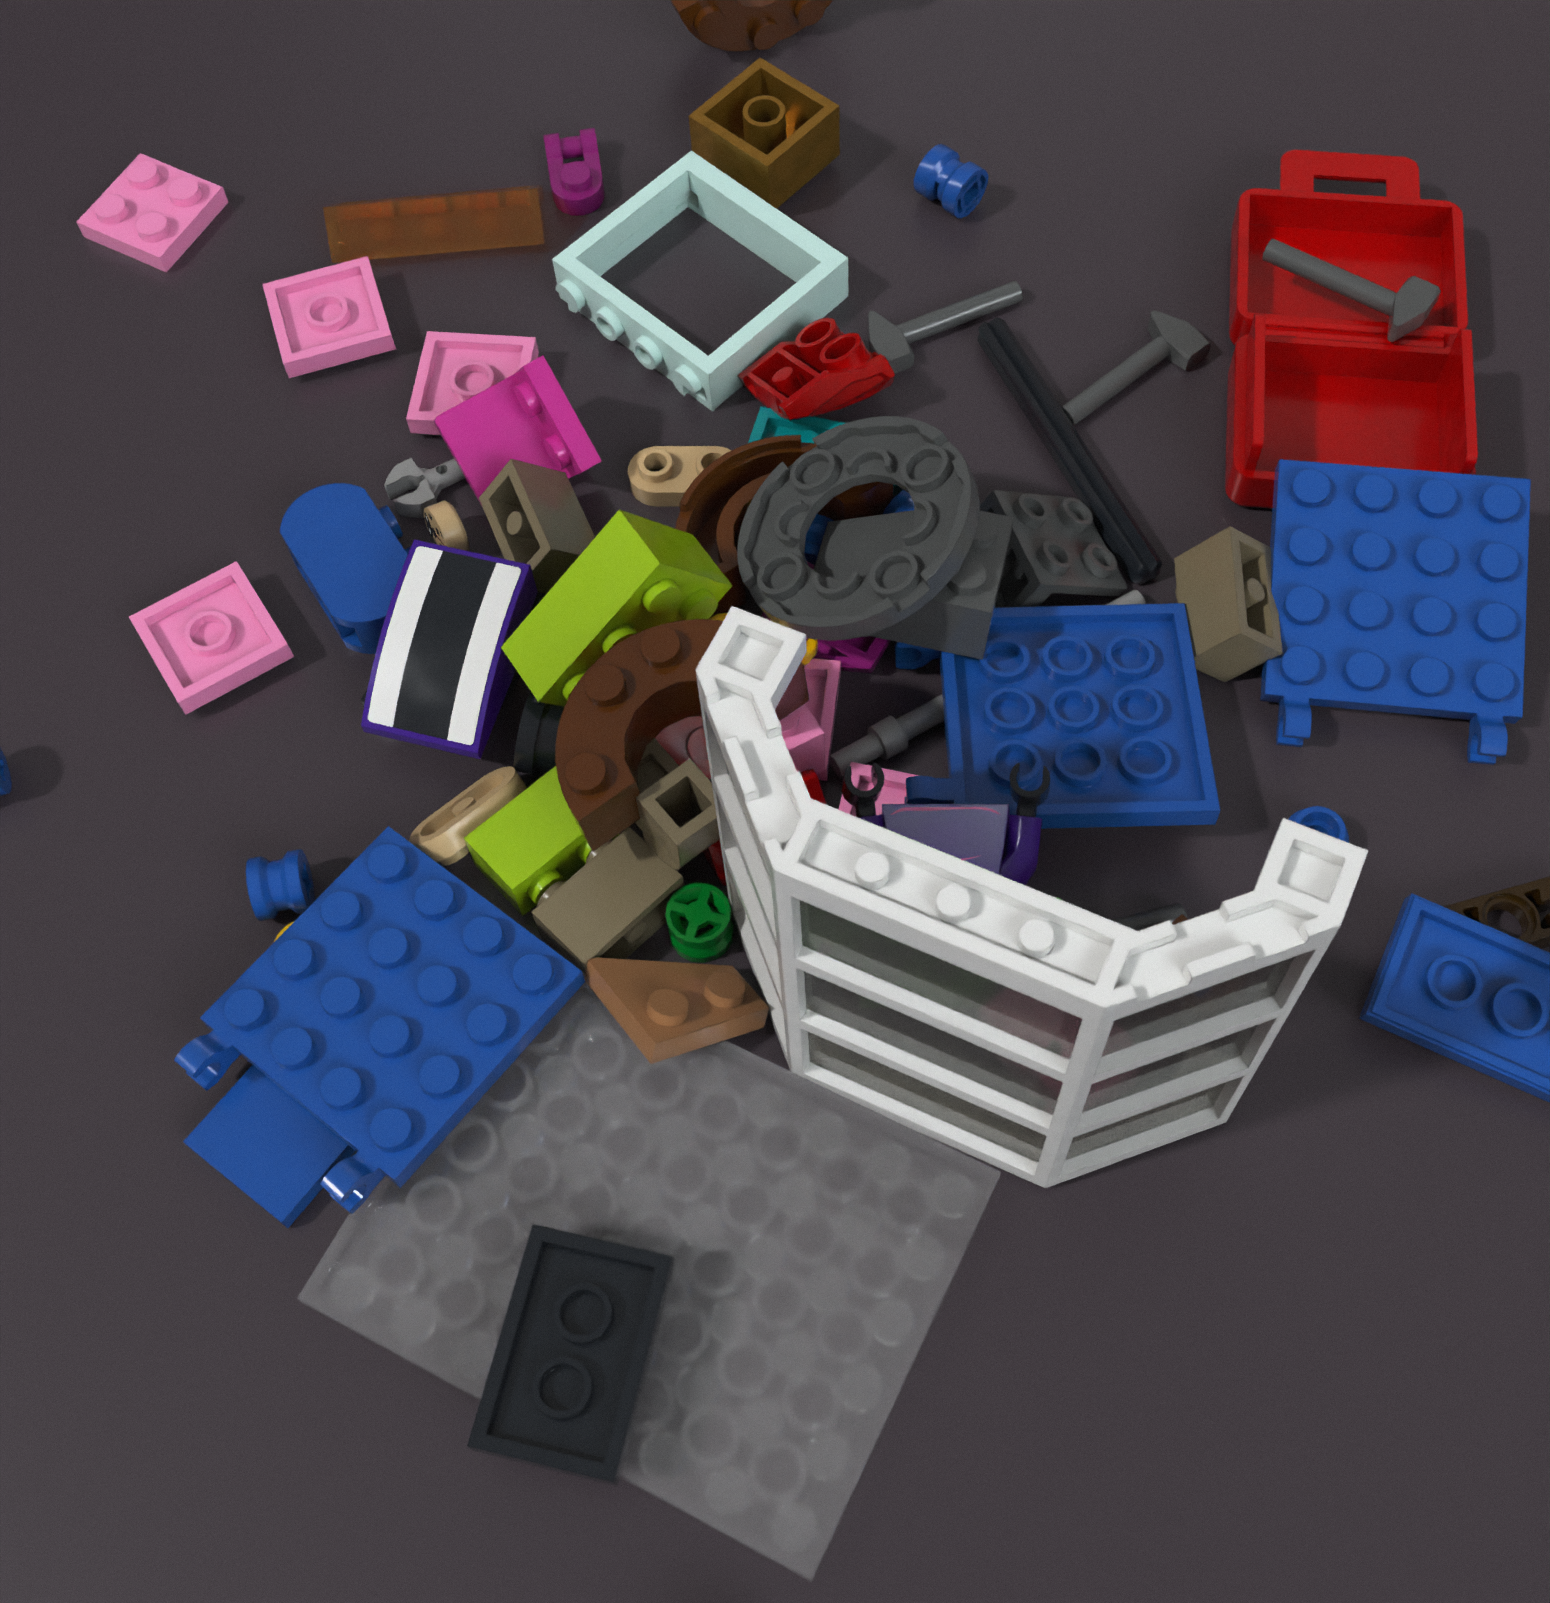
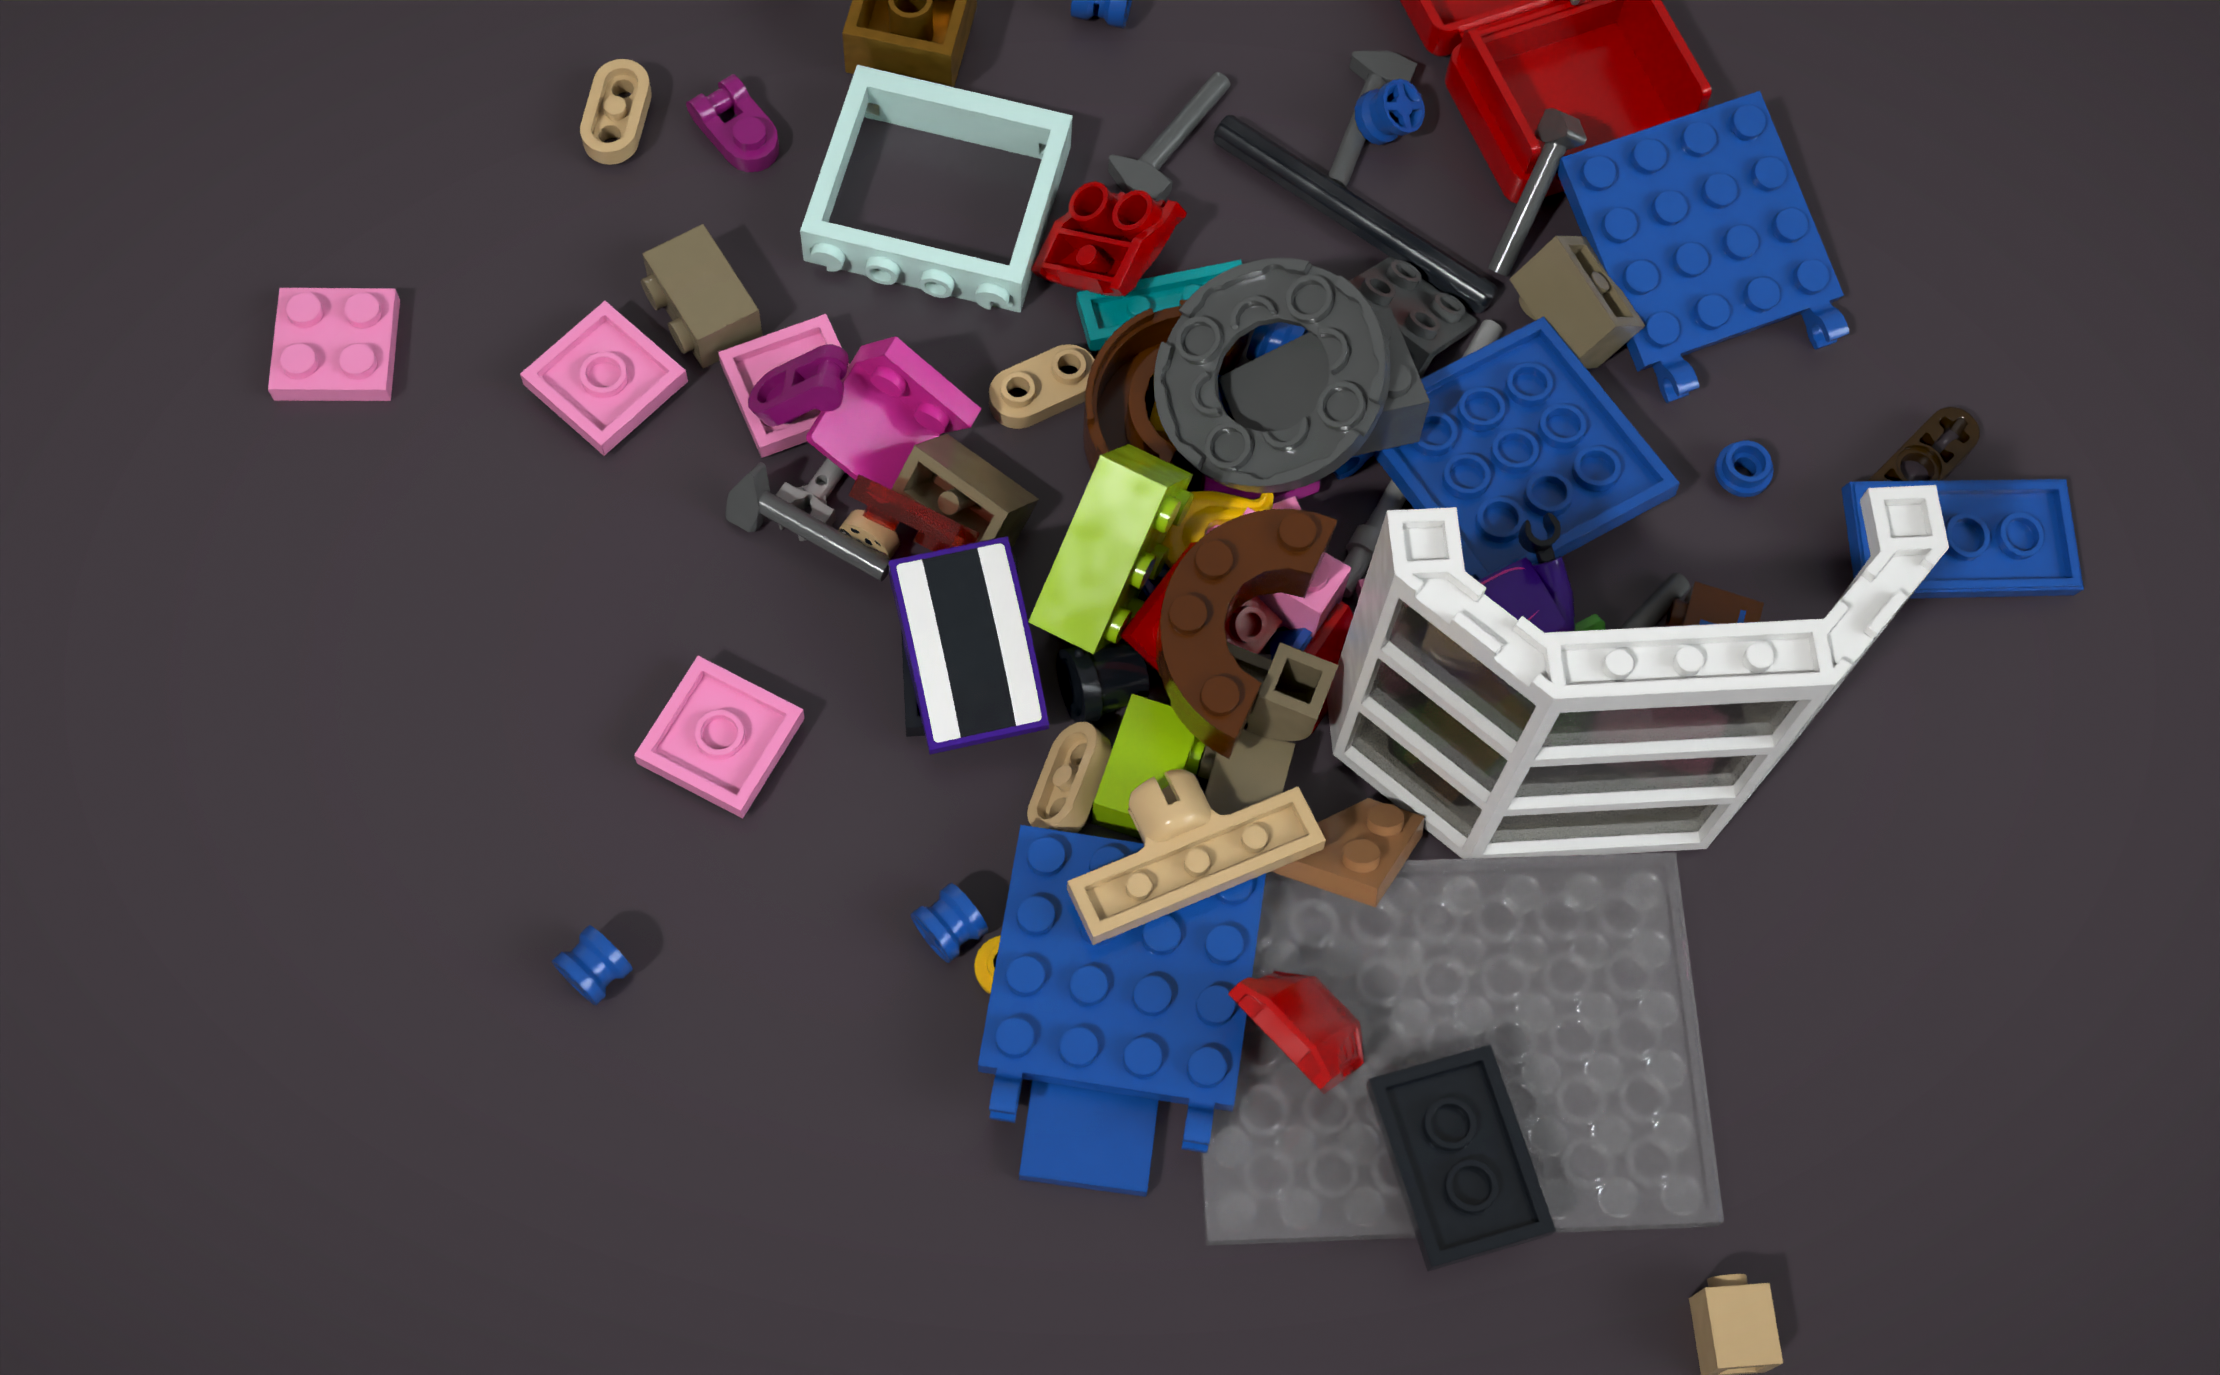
camera: 40 degrees left, 5 degrees up
(346, 558) = (811, 608): blue brick -> none
(372, 469) = (752, 502): none -> dark grey piece
(435, 223) = (608, 248): clear orange fence -> none
(445, 280) = (700, 295): none -> dark tan brick
(459, 375) = (801, 386): none -> magenta plate
(466, 508) = (890, 508): none -> clear red plate
(484, 123) = (615, 116): none -> tan plate
(495, 1138) = (1304, 1024): none -> red slope
(501, 920) = (1190, 853): none -> tan plate
(695, 908) = (1322, 762): green wheel -> none
(1164, 361) = (1389, 112): none -> blue wheel
(1288, 440) = (1560, 134): none -> dark grey piece

